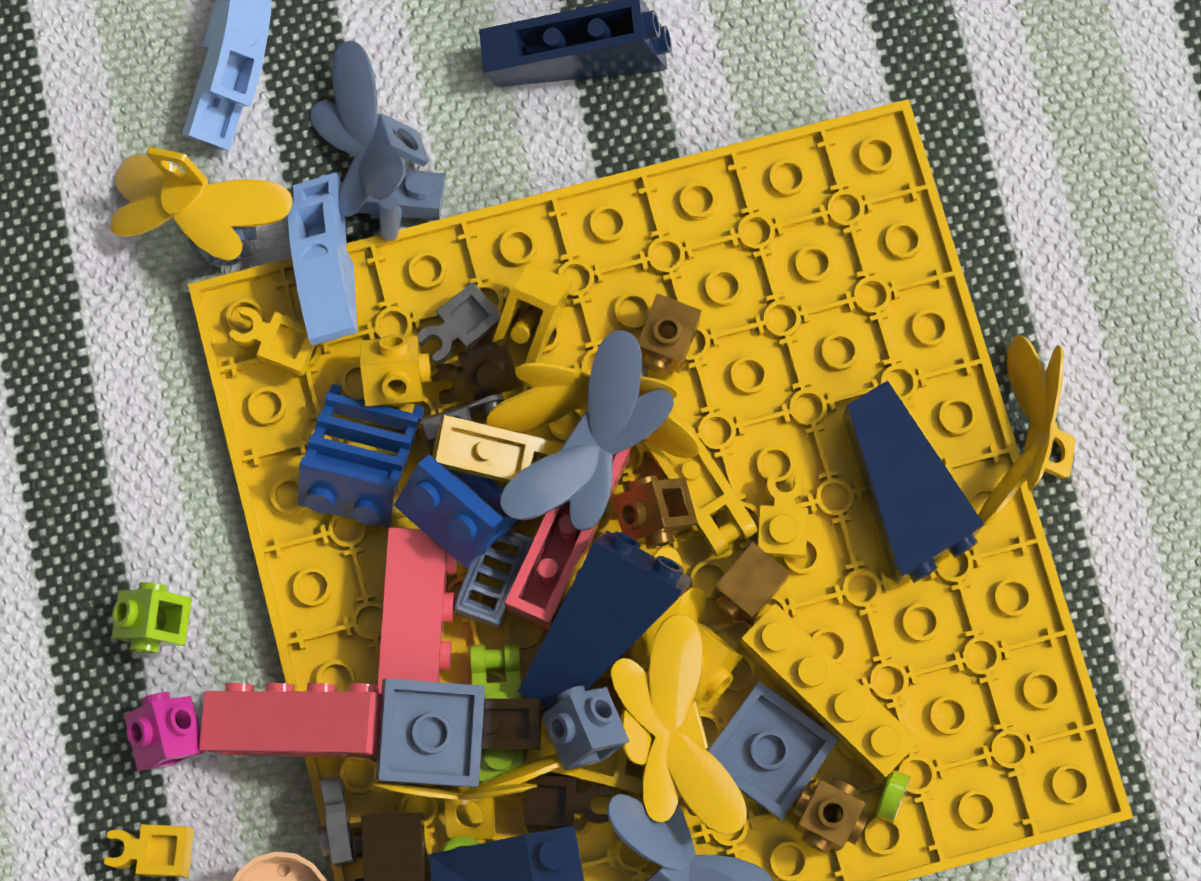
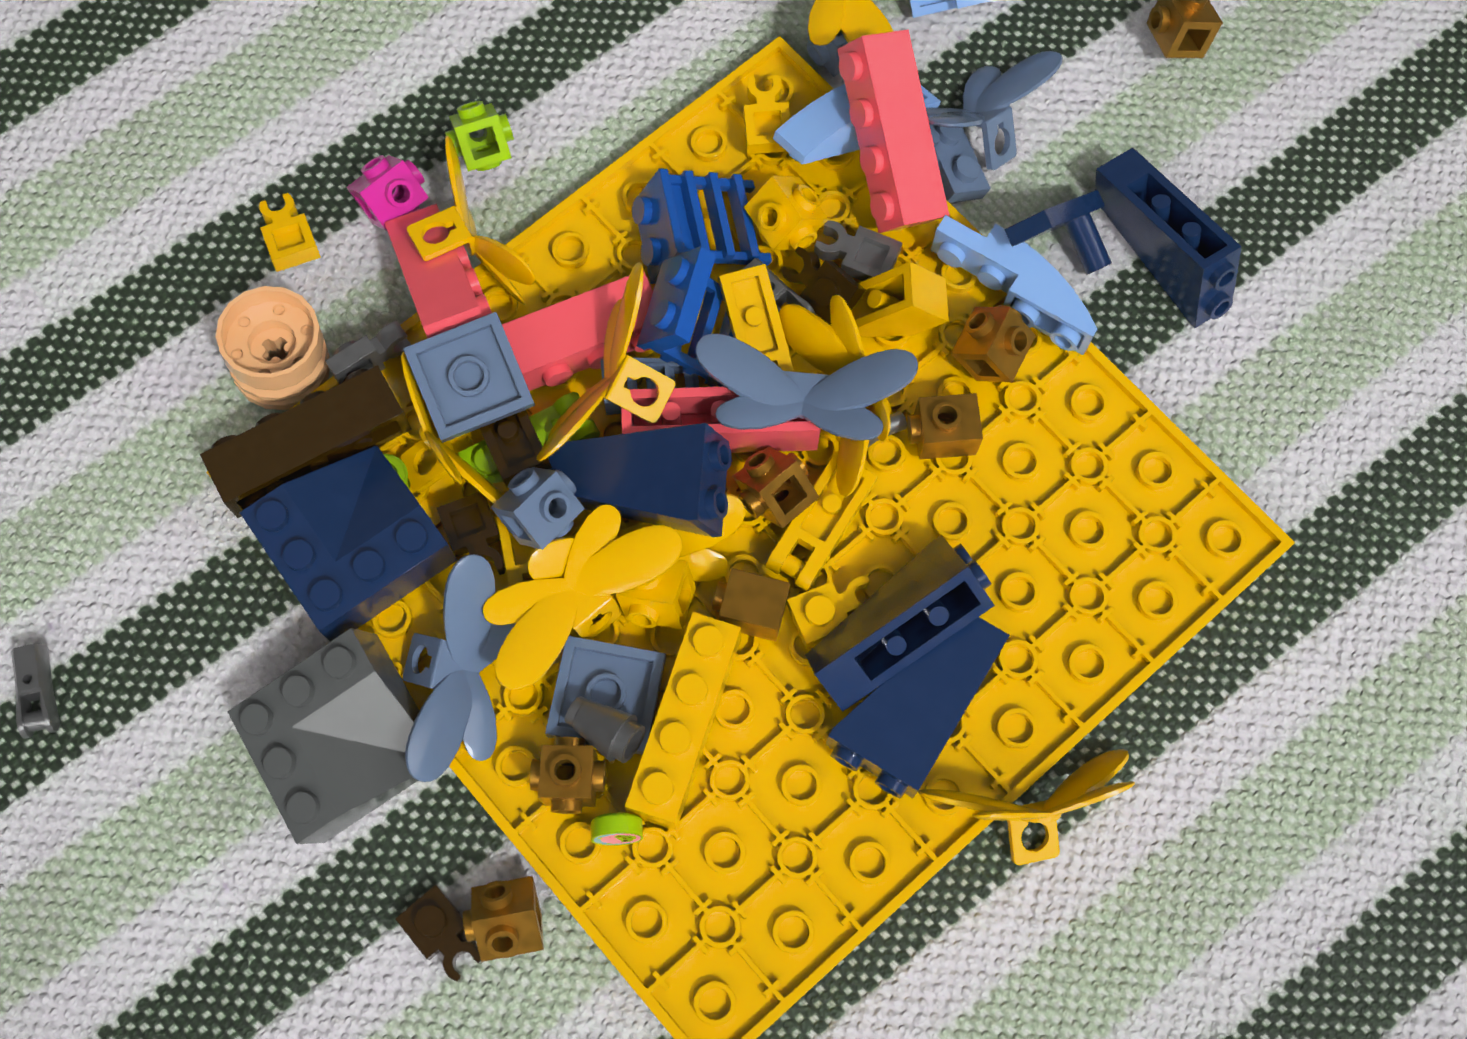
camera: 65 degrees right, 5 degrees down
(307, 659) = (495, 256): none -> yellow piece
(371, 235) = (892, 130): none -> coral brick
(506, 645) = (616, 371): none -> yellow piece
(521, 131) = (1079, 224): none -> dark blue piece
(577, 190) = (1025, 275): none -> light blue slope
(612, 253) = (993, 343): none -> pearl gold brick
(807, 762) = (606, 728): none -> flat silver cone
(831, 463) = (901, 622): none -> slope

